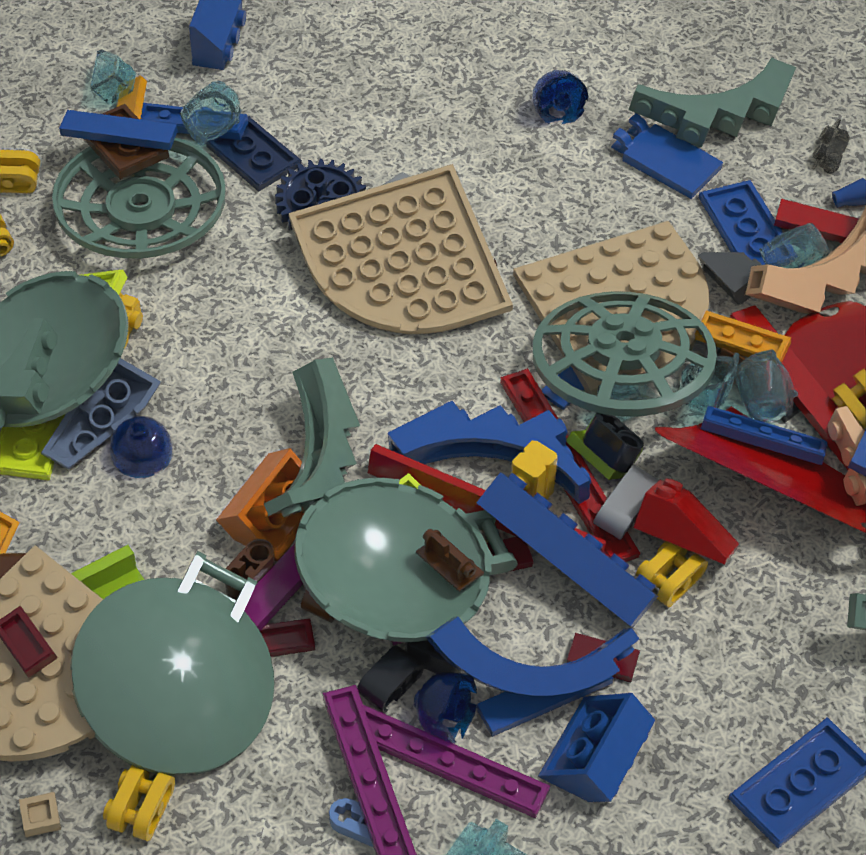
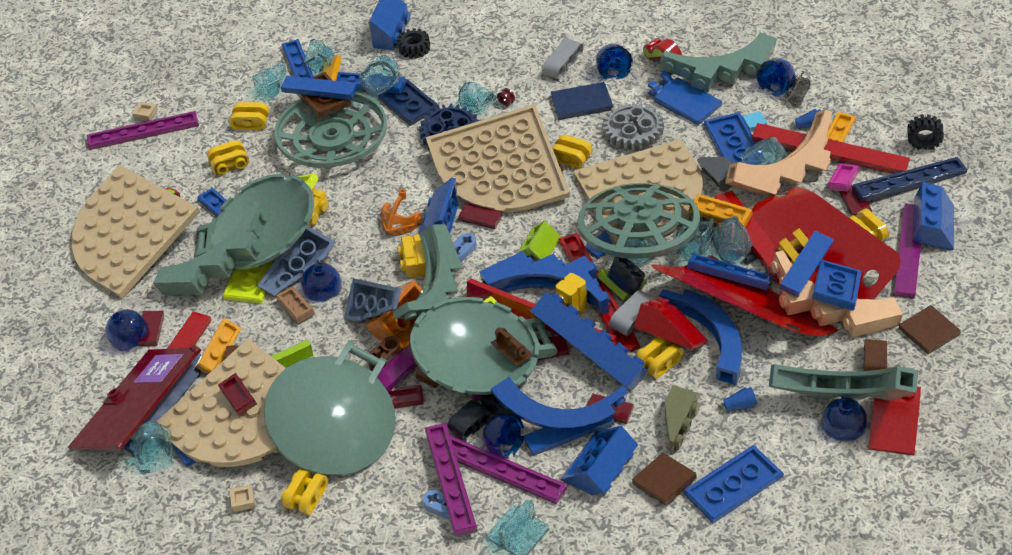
camera: 10 degrees right, 5 degrees down
(39, 115) = (269, 81): none -> clear light blue slope
(77, 82) = (296, 58): none -> blue tile
(102, 484) = (295, 305): none -> medium nougat plate
(225, 480) = (370, 300): none -> sand blue wedge
(255, 70) = (413, 50): none -> black tyre
(270, 350) = (408, 223): none -> orange helmet
(283, 405) = (414, 258): none -> yellow brick
(319, 327) = (442, 206): none -> blue slope
(356, 149) = (475, 97): none -> clear light blue helmet
(360, 395) = (465, 250): none -> medium blue beam
(378, 339) = (480, 216): none -> dark red tile
(402, 149) = (506, 97): none -> dark red bush
(473, 383) = (540, 241): none -> lime panel
(481, 89) = (562, 58): none -> light grey beam
(510, 237) = (572, 151): none -> yellow brick
(515, 157) = (581, 100): none -> dark blue tile
(596, 199) = (633, 126): none -> light grey gear
(624, 81) = (656, 47): none -> red animal
(698, 775) = (664, 478): none -> reddish brown tile
(707, 667) = (679, 408): none -> olive slope
(758, 524) = (720, 326): none -> blue arch
(773, 193) = (752, 120): none -> medium azure tile
(802, 121) = (776, 72): none -> clear blue cylinder
(802, 643) = (742, 399): none -> blue cone

